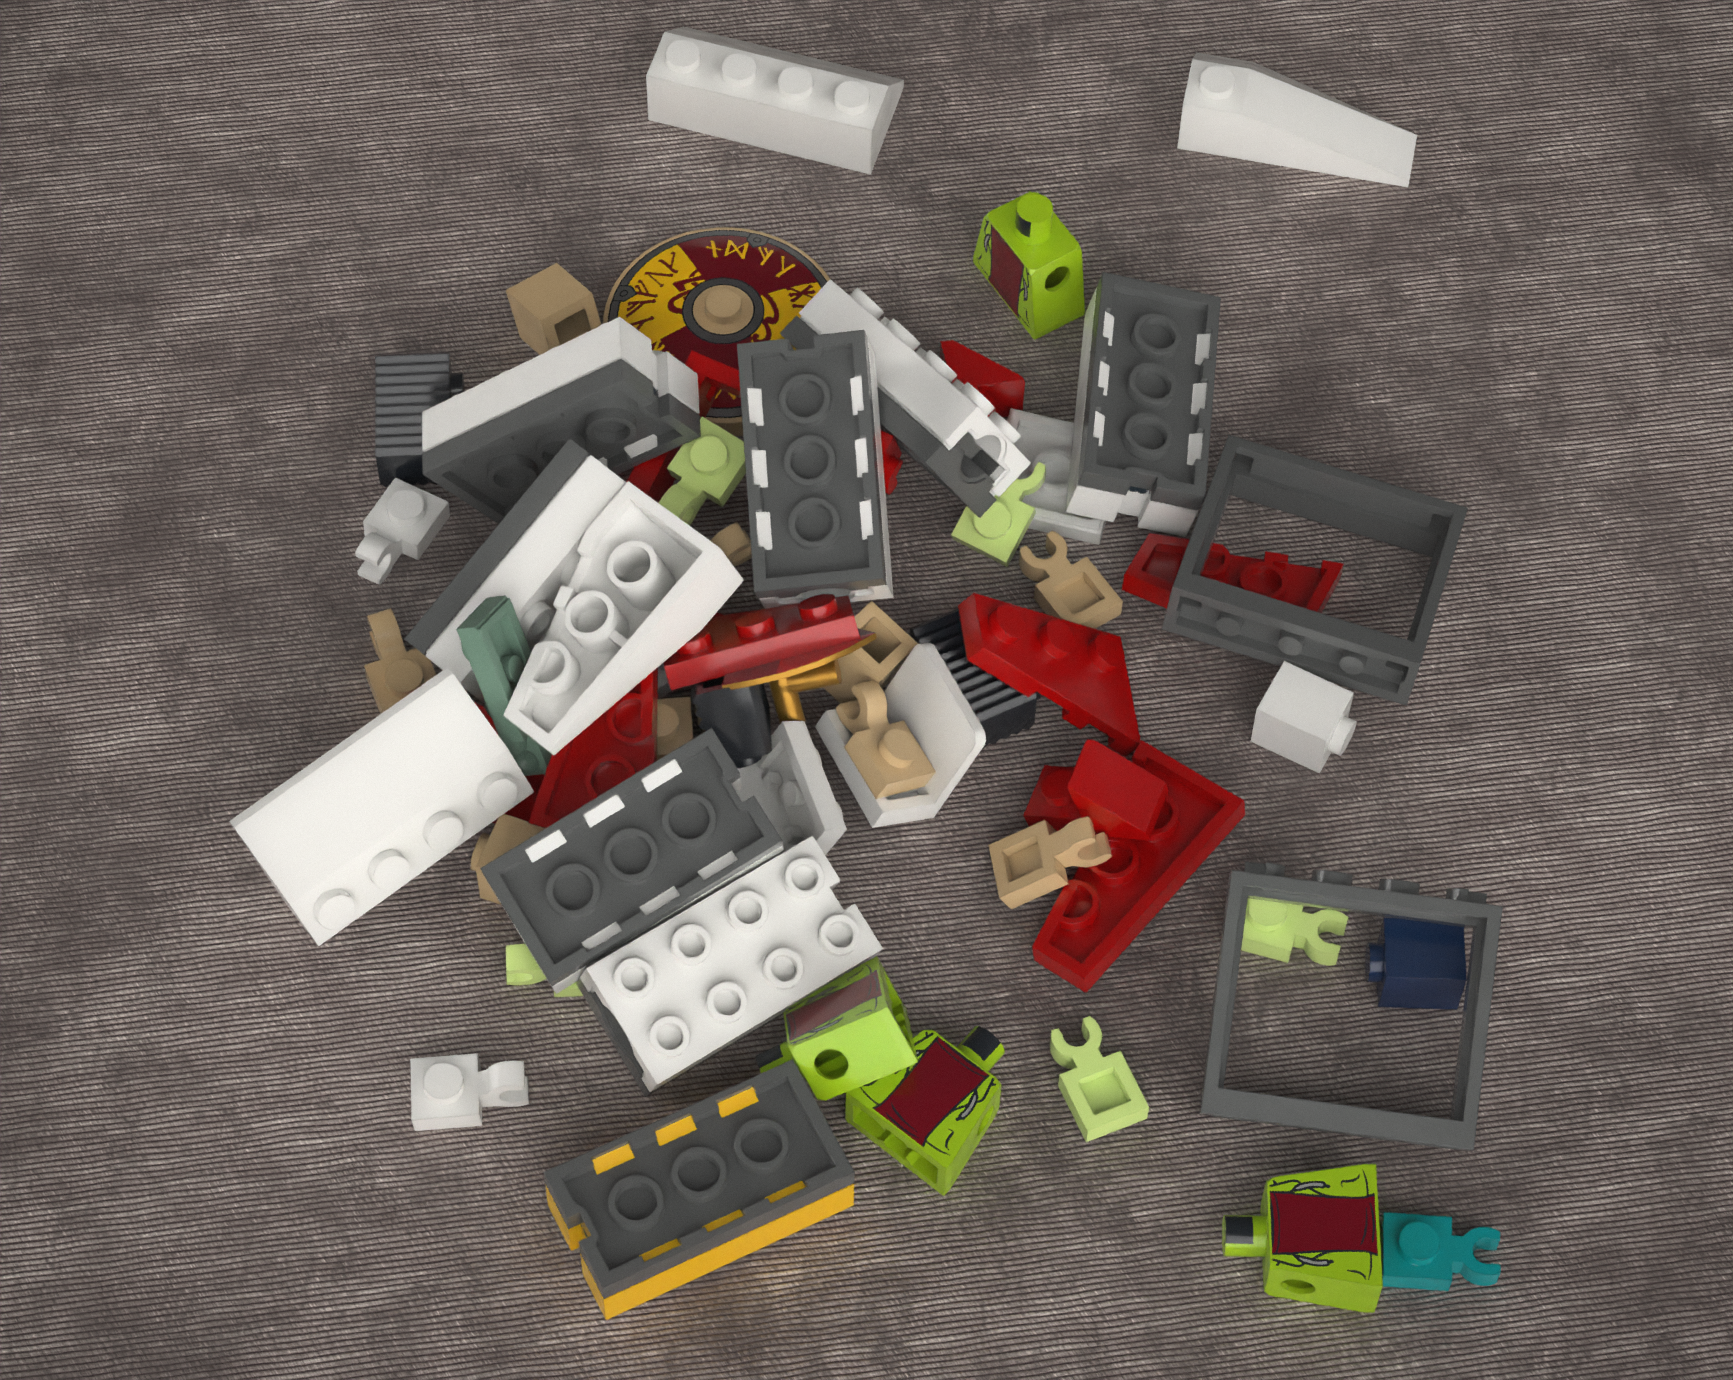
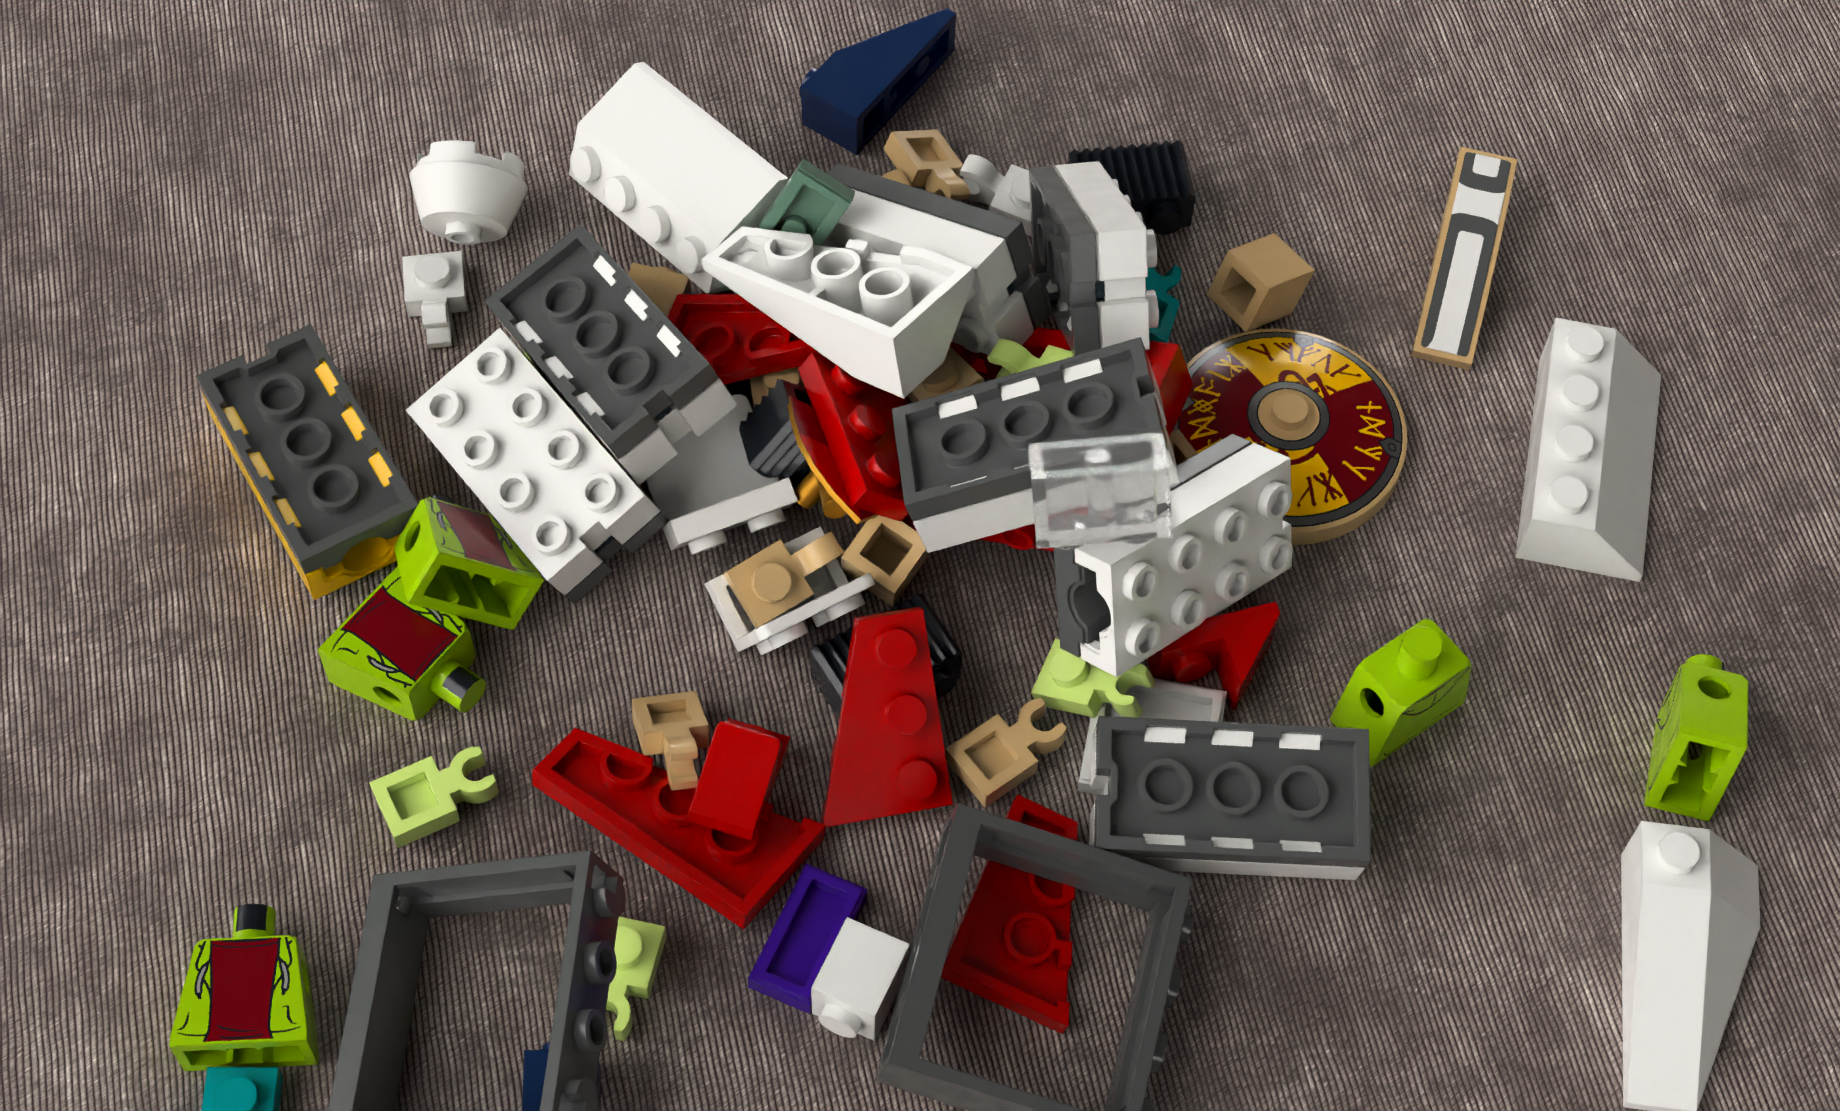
camera: 85 degrees right, 0 degrees up
(241, 651) = (873, 79): none -> dark blue slope
(353, 594) = (927, 162): none -> tan plate
(353, 1035) = (467, 193): none -> white cone
(534, 143) = (1464, 258): none -> slope
(908, 396) = (1100, 491): none -> clear brick
(1087, 57) = (1703, 708): none -> lime torso
(1251, 766) = (805, 936): none -> dark purple tile

